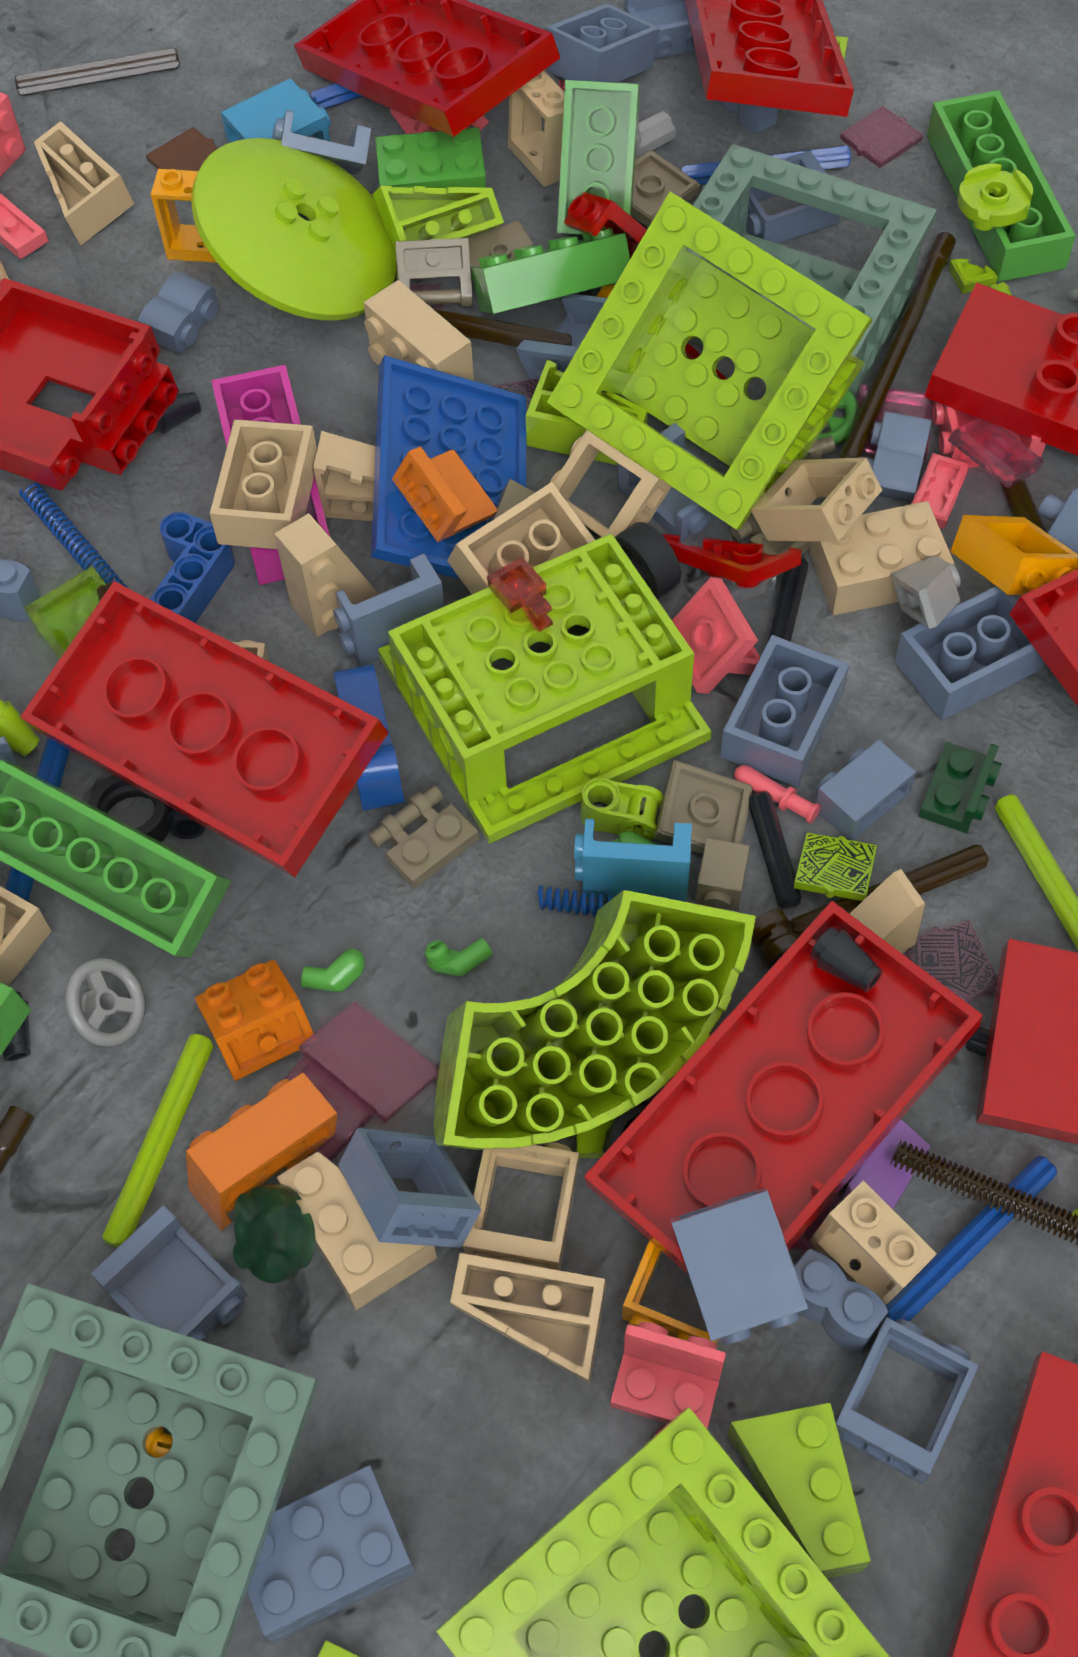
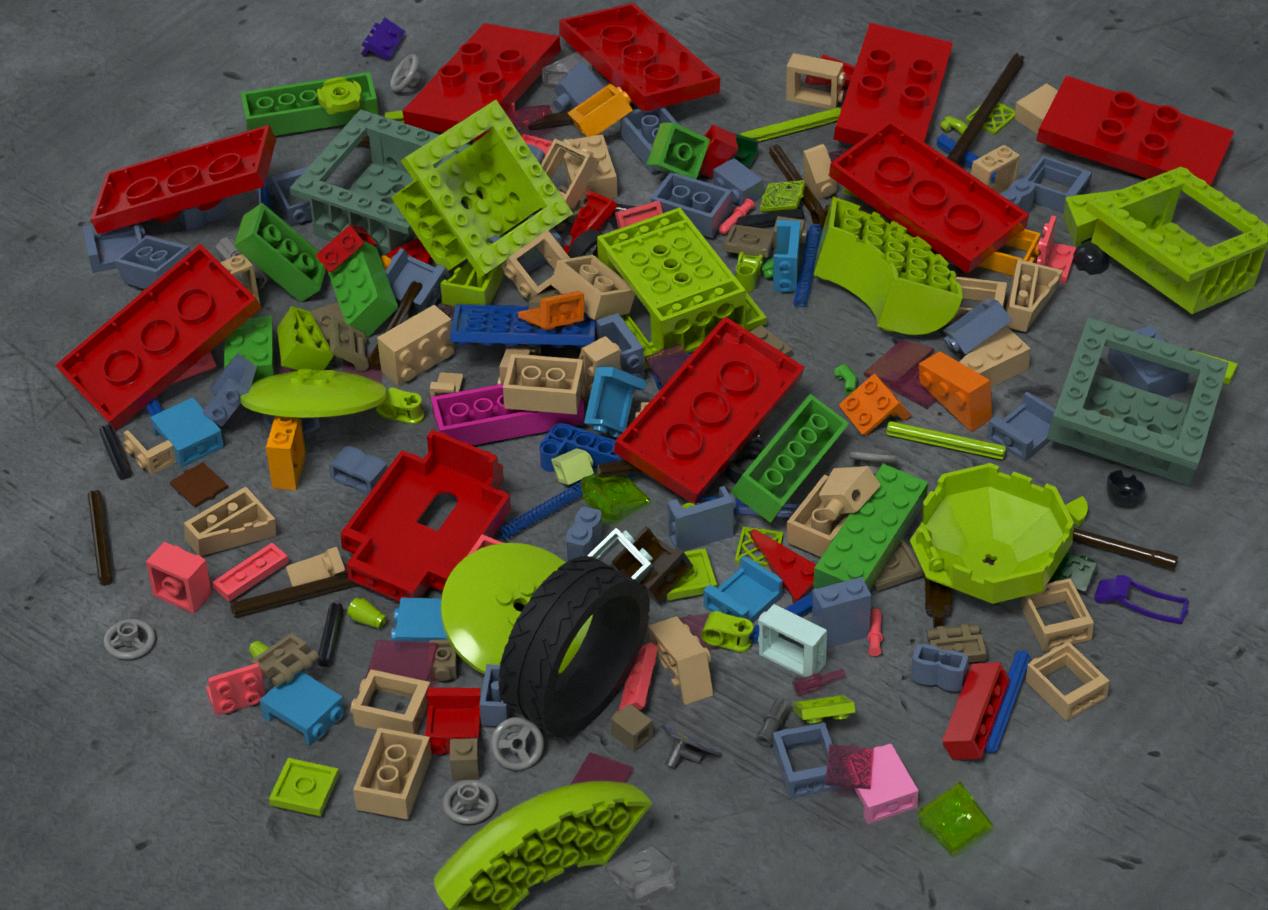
camera: 90 degrees left, 15 degrees down
(141, 561) = (572, 466): none -> yellowish green brick
(242, 84) = (153, 459): none -> tan bracket
(244, 593) = (611, 400): none -> dark azure panel
(252, 67) = (114, 452): none -> black axle
(255, 1247) = (1011, 378): clear green plate -> none
(309, 351) = (399, 406): none -> lime piece
(334, 406) = (446, 384): none -> tan bracket
(357, 679) = (666, 362): none -> clear pink piece
(456, 962) = (839, 332): bright green arm -> none
(521, 587) = (641, 263): clear red plate -> none
(739, 1266) = (1011, 205): sand blue panel -> none
(845, 959) = (861, 161): black cone -> none
(894, 668) = (678, 150): none -> bright green brick
(924, 736) = (719, 150): none -> red brick
(927, 590) = (625, 141): light grey slope -> none

